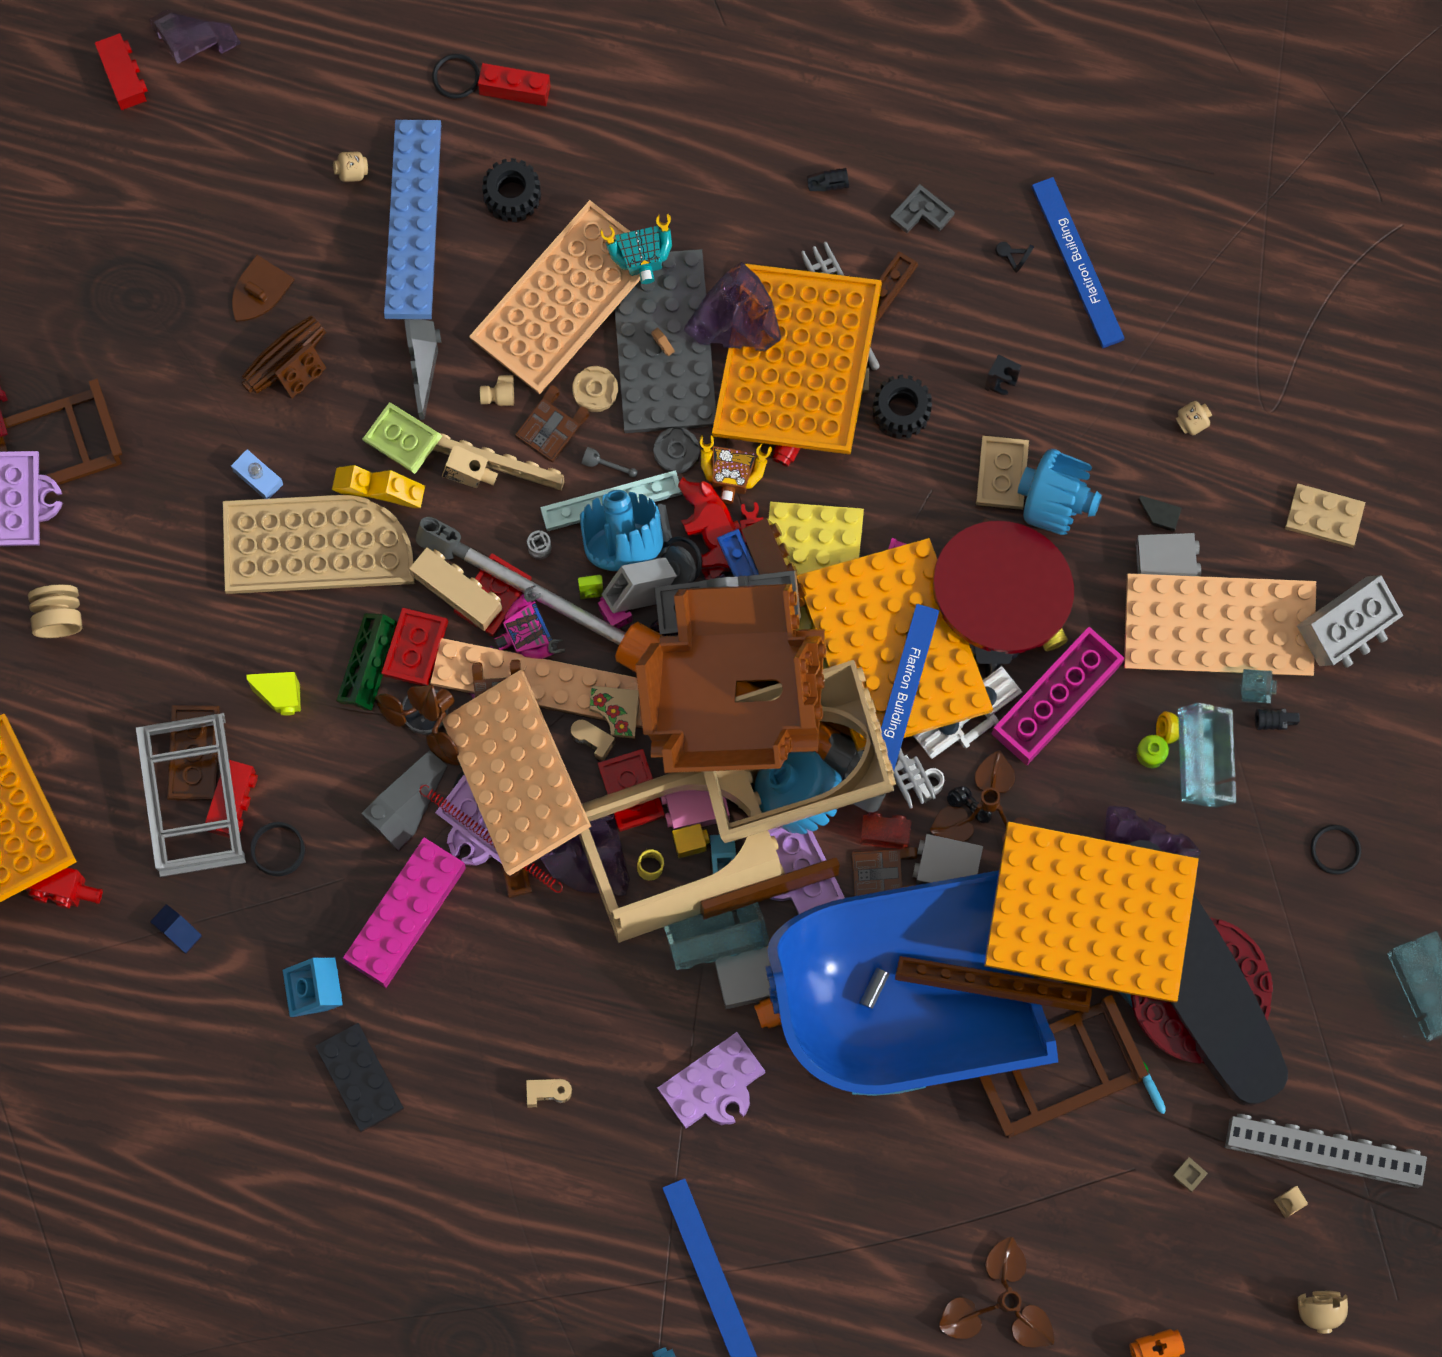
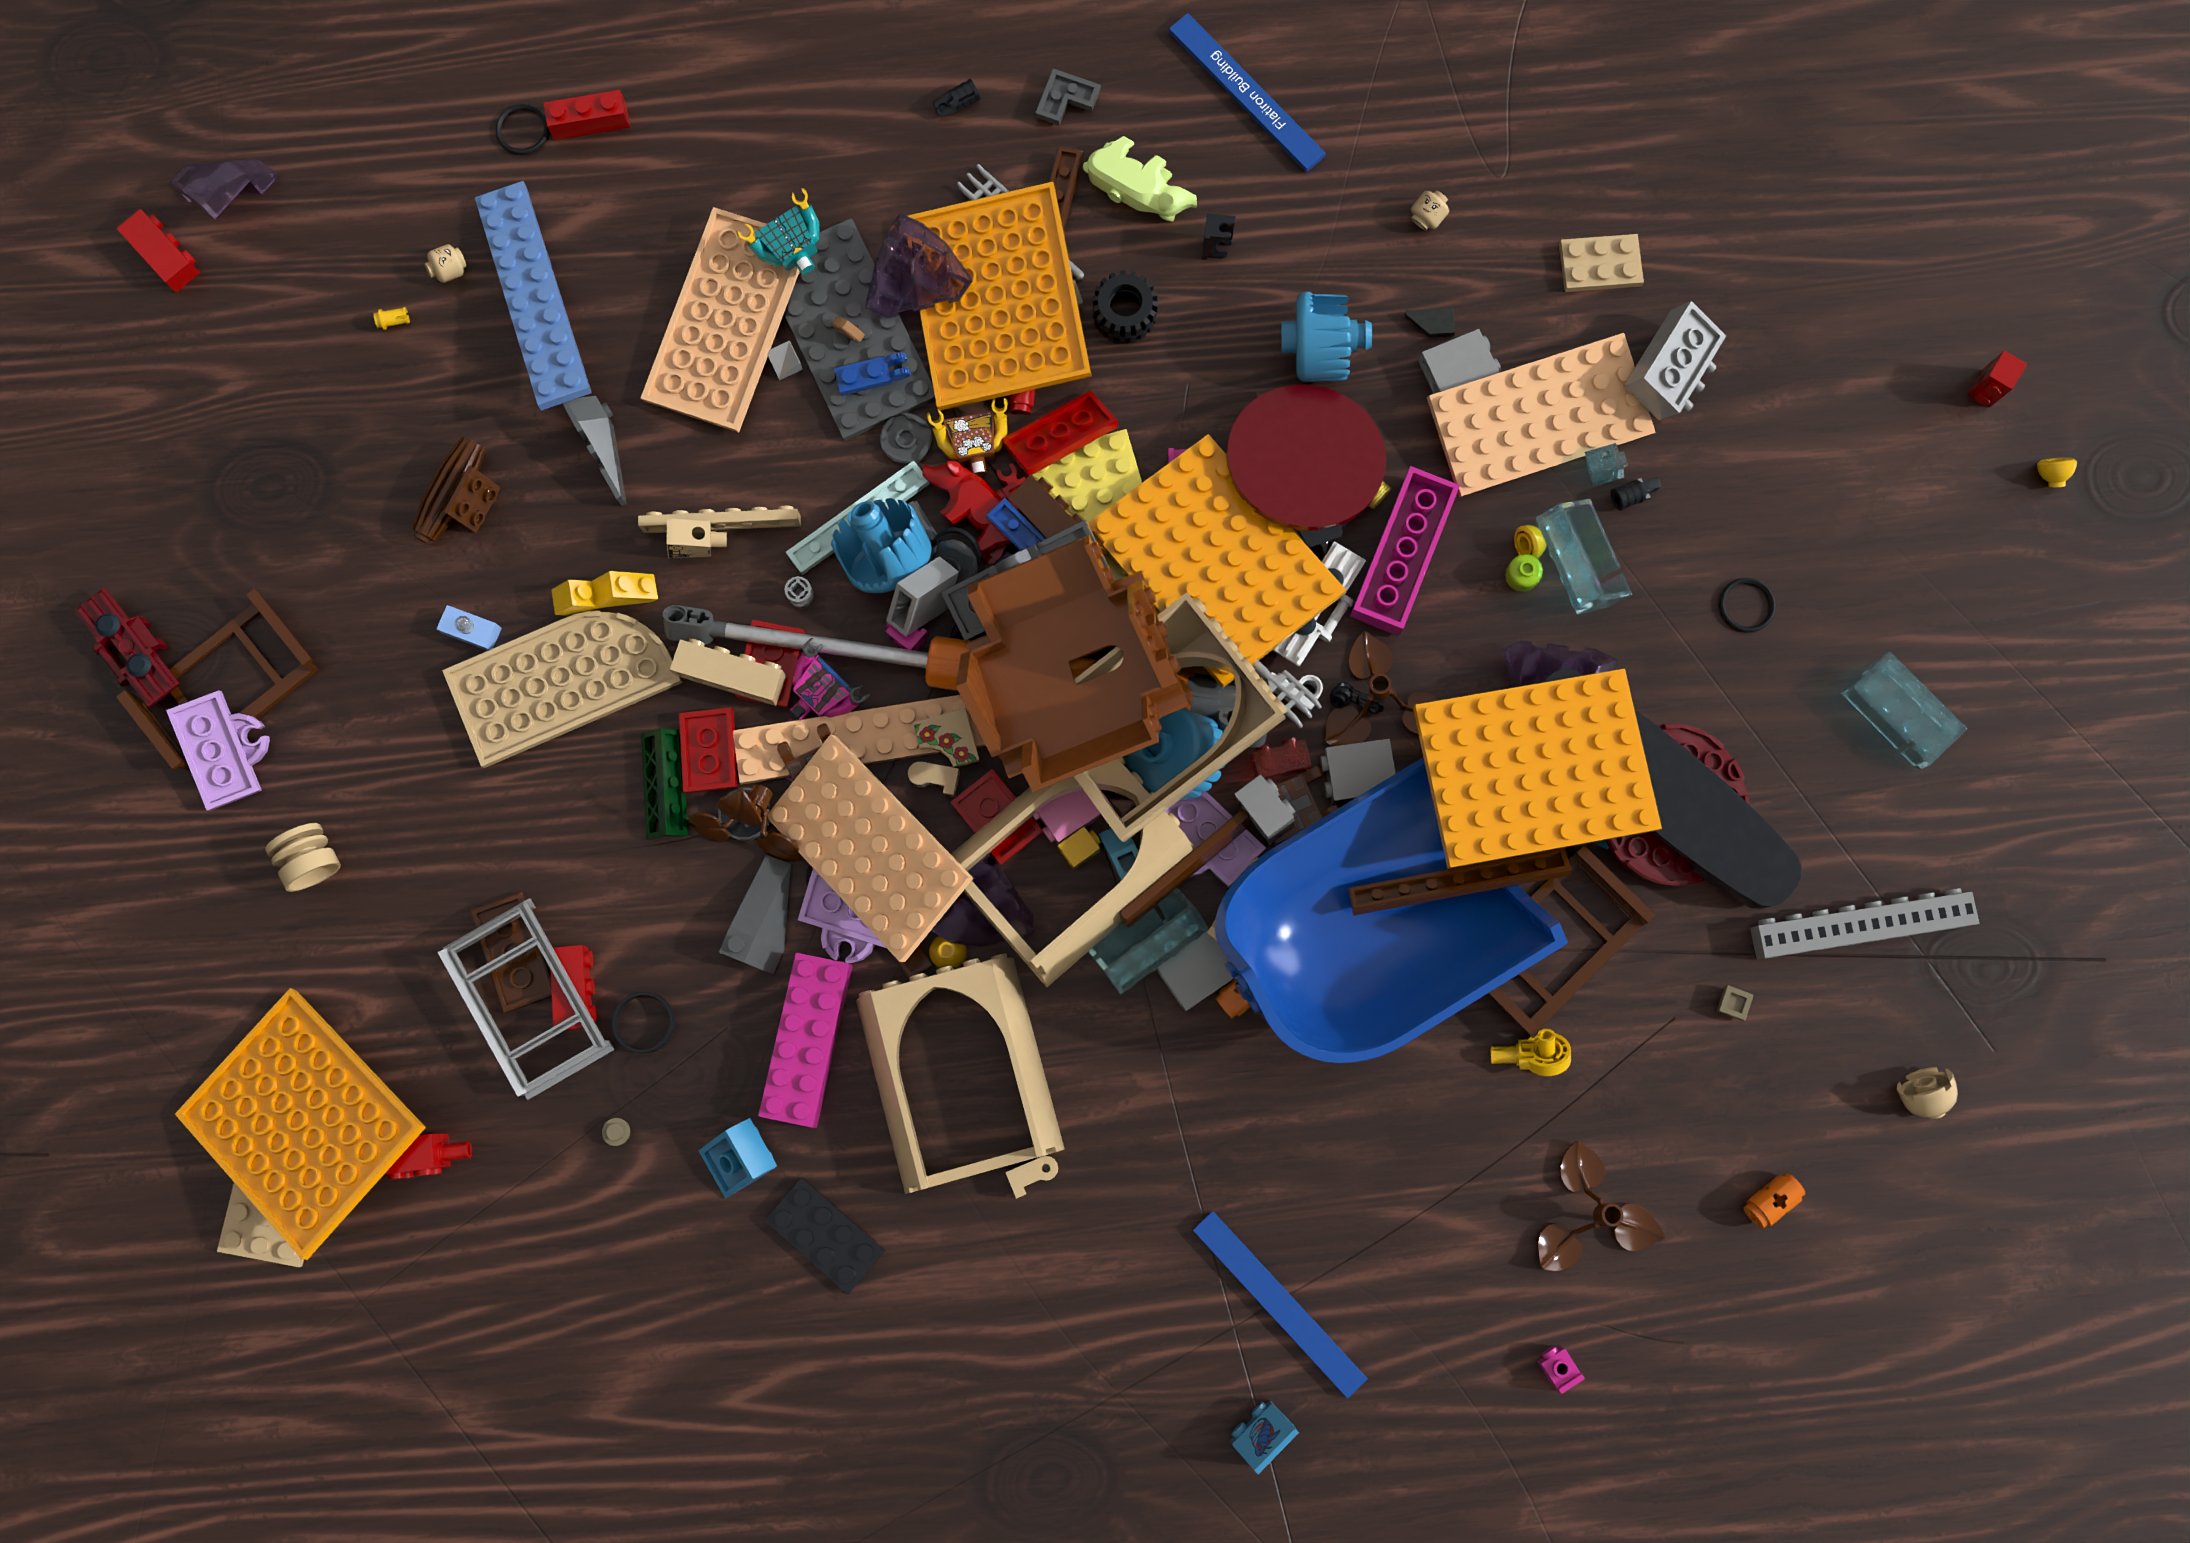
camera: 20 degrees left, 5 degrees up
(176, 928) = (566, 1150): dark blue slope -> none
(222, 928) = (616, 1131): none -> dark tan plate
(259, 289) = (397, 430): reddish brown shield -> none
(277, 690) = (580, 852): neon yellow slope -> none
(289, 195) = (390, 317): none -> yellow pin
(402, 437) = (609, 531): yellowish green tile -> none
(485, 834) = (856, 920): red piece -> none
(501, 394) = (698, 445): tan piece -> none
(511, 173) = (621, 208): black tyre -> none
(545, 893) = (947, 954): none -> yellow brick
(549, 428) = (761, 464): reddish brown flag -> none
(578, 931) = (999, 991): none -> tan panel
(590, 586) = (871, 617): lime plate -> none
(592, 458) = (820, 479): dark grey hinge -> none
(595, 388) = (795, 406): tan tile -> none
(600, 348) = (784, 360): none -> light grey slope
(654, 854) = (1048, 876): light yellow piece -> none
(667, 385) = (870, 374): none -> blue hinge
(713, 1083) = (1203, 1097): lavender plate -> none
(806, 492) = (1060, 433): none -> red plate
(855, 864) = (1265, 808): none -> light grey brick
(874, 988) = (1334, 932): dark grey axle -> none
(907, 679) = (1246, 589): blue tile -> none
(952, 307) = (1137, 184): none -> yellowish green animal
(1001, 472) = (1254, 338): tan plate -> none
(1004, 250) = (1165, 107): black piece -> none
(1005, 1151) = (1537, 1054): none -> yellow pin
(1153, 1092) = (1665, 932): medium azure piece -> none
(1291, 1201) = (1851, 991): tan leg -> none

